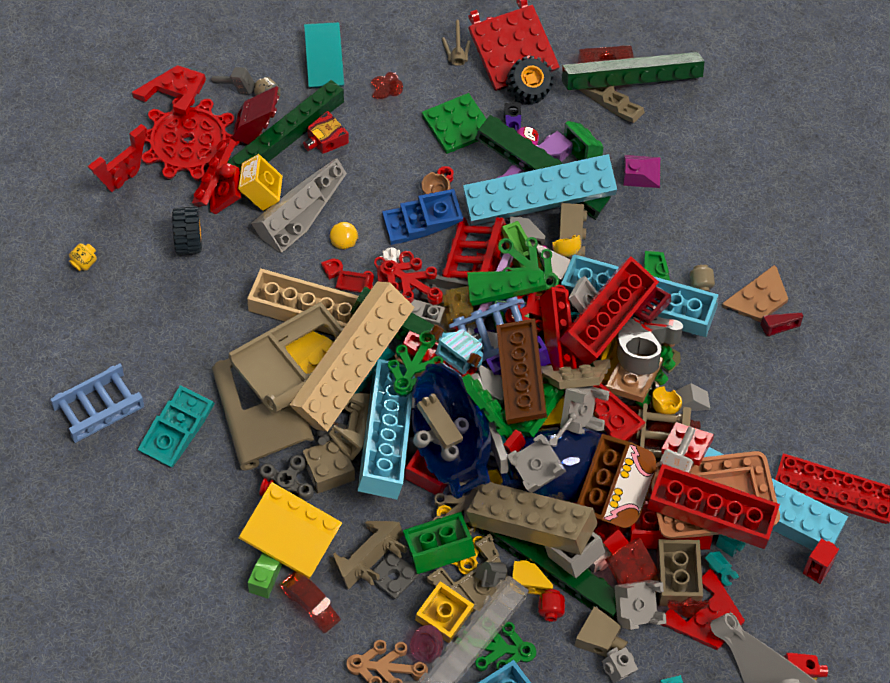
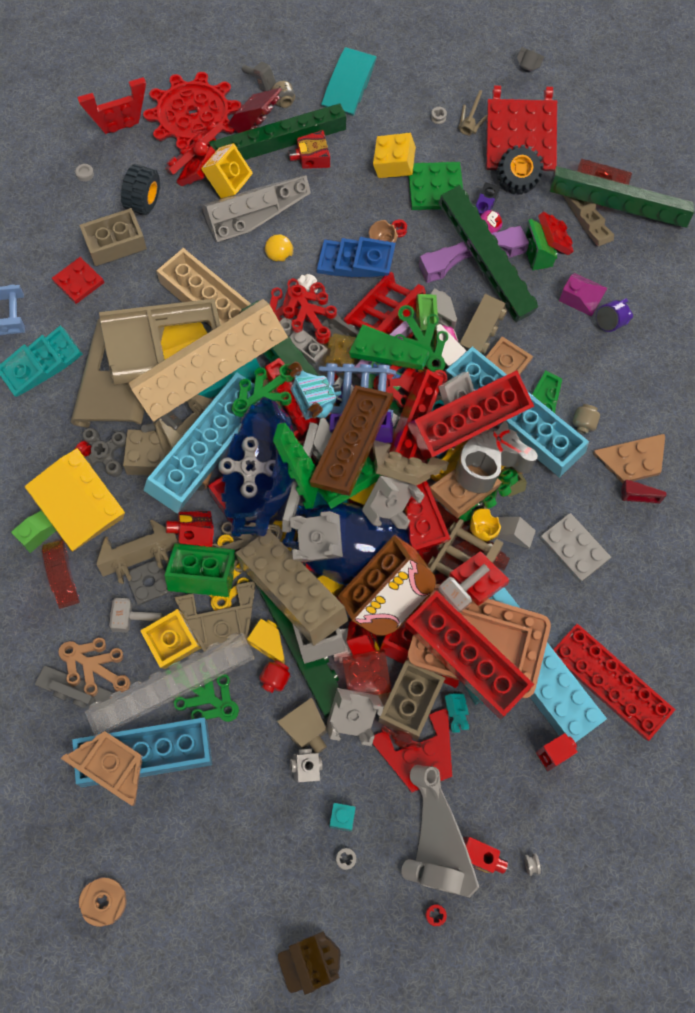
camera: 25 degrees right, 10 degrees up
(82, 257) = (45, 179): yellow head -> none
(114, 236) = (84, 172): none -> light grey tile
(168, 339) = (78, 280): none -> red plate
(175, 82) = (209, 60): red wing -> none
(183, 285) = (113, 237): none -> dark tan brick
(332, 267) = (253, 273): red tile -> none
(353, 281) = (260, 291): red tile -> none
(387, 85) = (390, 127): clear red plate -> none
(387, 613) = (122, 614): none -> light grey piece
(407, 109) = (394, 155): none -> yellow brick
(413, 510) = (193, 528): none -> red torso
(425, 61) = (435, 112): none -> light grey bush
(426, 644) = (138, 662): clear pink hat -> none
(439, 421) = (248, 456): dark tan hinge -> none
(491, 573) = (231, 622): dark grey piece -> none
(515, 442) = (308, 507): red tile -> none
(540, 189) = (471, 273): medium azure brick -> none
(553, 442) = (345, 522): light grey hinge -> none
(567, 247) = (469, 337): yellow hair -> none
(591, 125) = (556, 233): none -> red plate
(607, 250) = (509, 357): none -> medium nougat plate
(658, 294) = (528, 415): dark red slope -> none
(679, 179) = (613, 315): none -> piece
(748, 392) = (575, 547): none -> light grey plate
(846, 660) = (532, 864): none -> light grey bush

